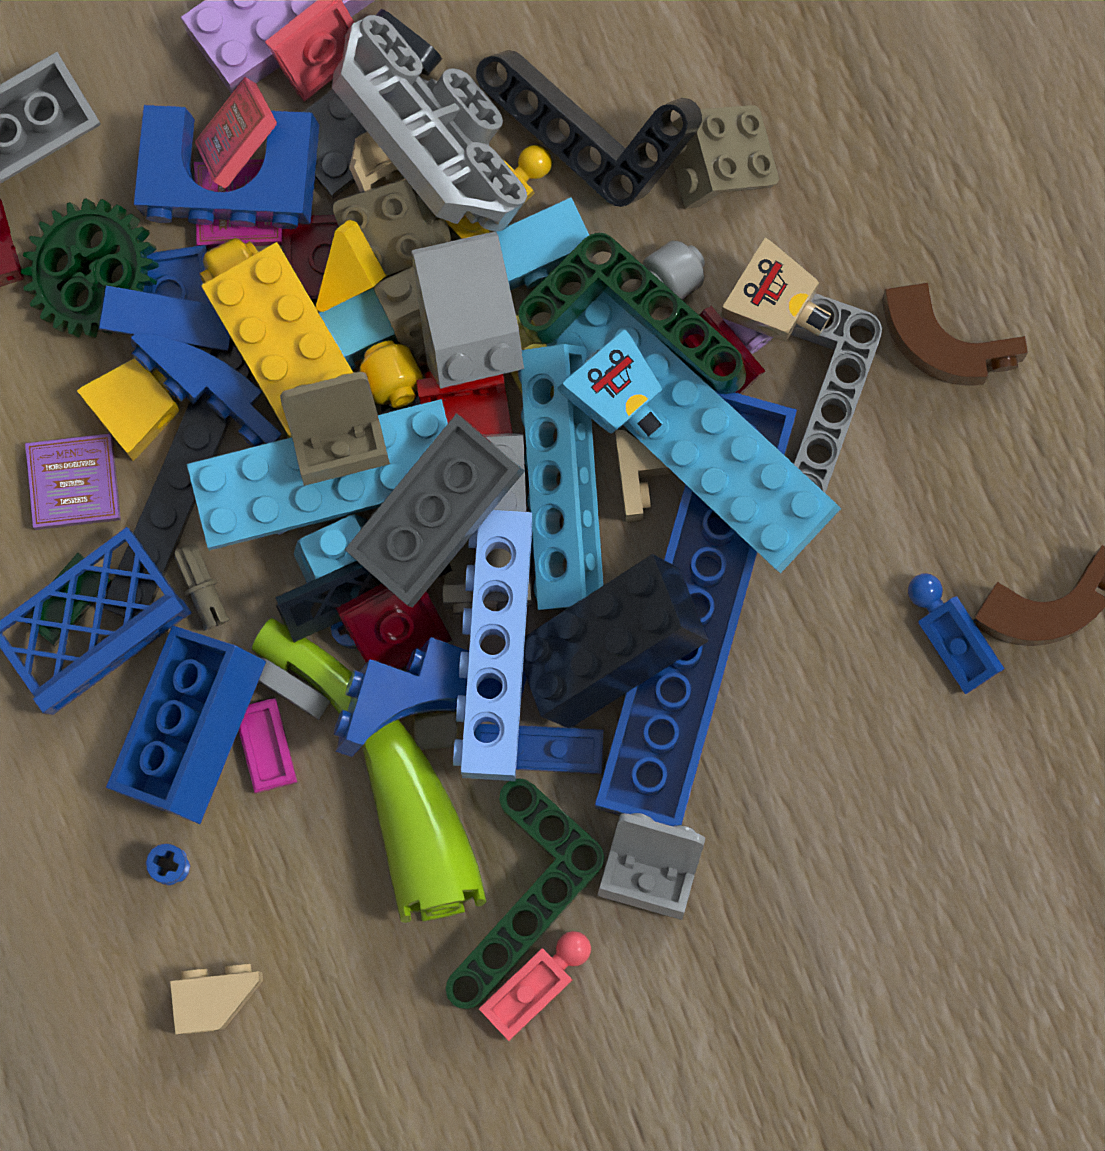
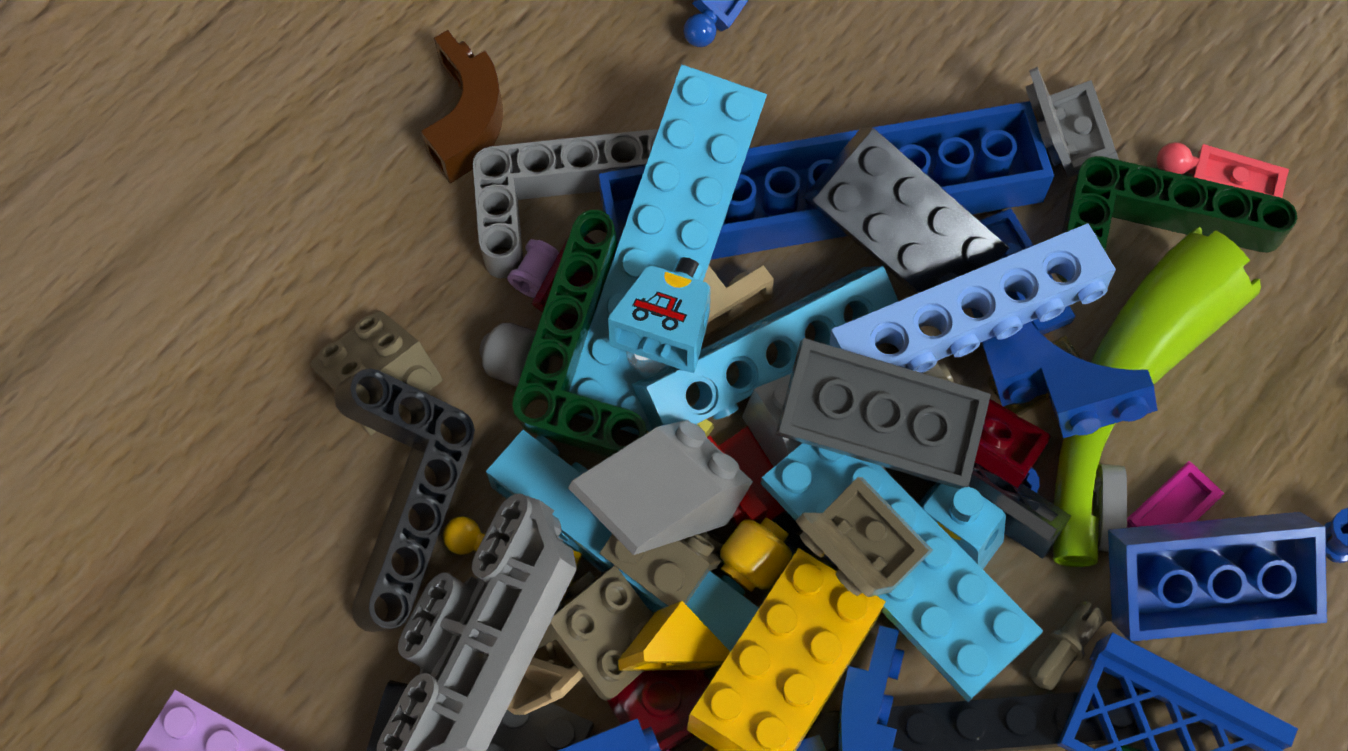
camera: 120 degrees left, 15 degrees down
(775, 296) = (497, 237): tan torso -> none

